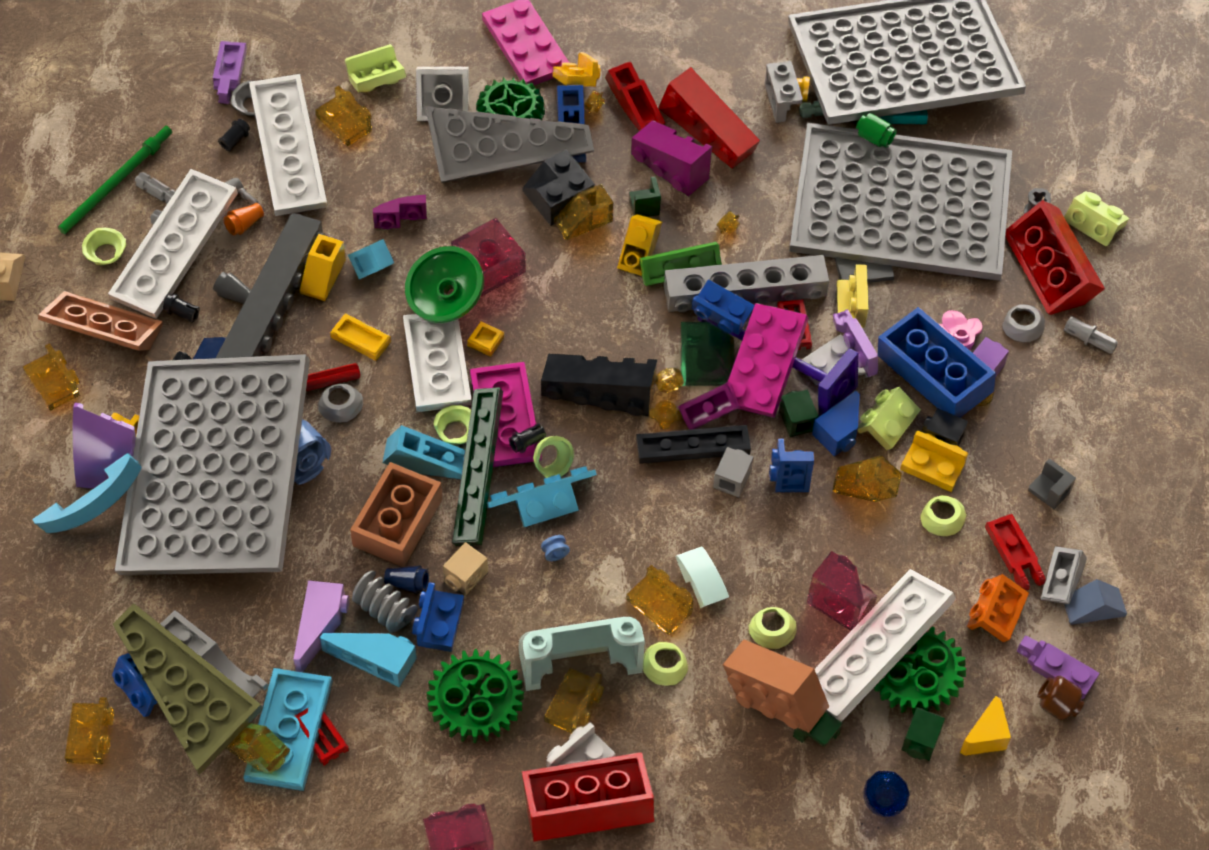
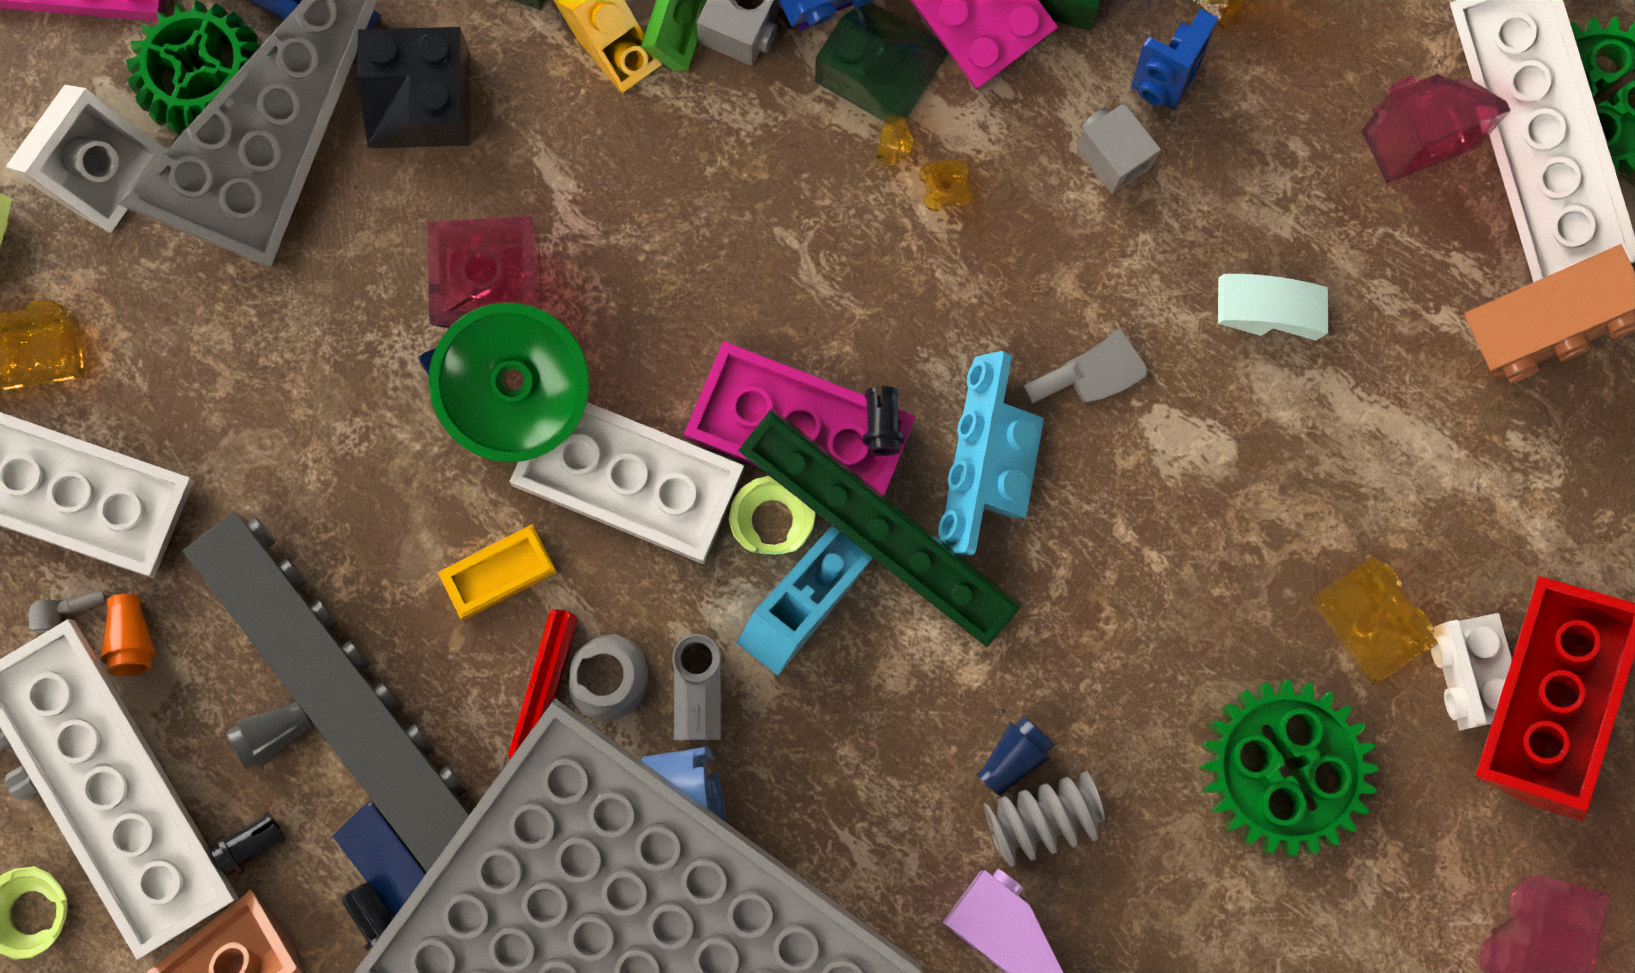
camera: 60 degrees left, 20 degrees up
(322, 267) = (327, 561): yellow slope -> none
(355, 436) = (697, 695): none -> light grey piece
(371, 259) = (356, 469): medium azure panel -> none
(375, 653) = (1130, 880): medium azure slope -> none
(390, 213) = (286, 385): magenta slope -> none
(396, 514) = (898, 708): nougat brick -> none
(438, 619) = (1114, 746): blue bracket -> none
(465, 569) = (1054, 656): tan brick -> none
(485, 339) = (629, 374): yellow tile -> none
(555, 548) = (1094, 494): medium blue bush -> none
(563, 459) = (940, 397): yellowish green piece -> none
(585, 212) = (495, 76): clear yellow slope -> none
(600, 382) = (841, 247): black wedge -> none
(616, 522) = (1095, 374): none -> light grey piece
(618, 636) = (1272, 590): light aqua windscreen -> none
(661, 600) = (1273, 390): clear yellow bracket -> none
(662, 675) = (1365, 468): yellowish green piece -> none
(691, 444) = (1029, 177): black plate -> none
(709, 406) = (978, 110): magenta slope -> none
(769, 638) = (1402, 281): yellowish green piece -> none

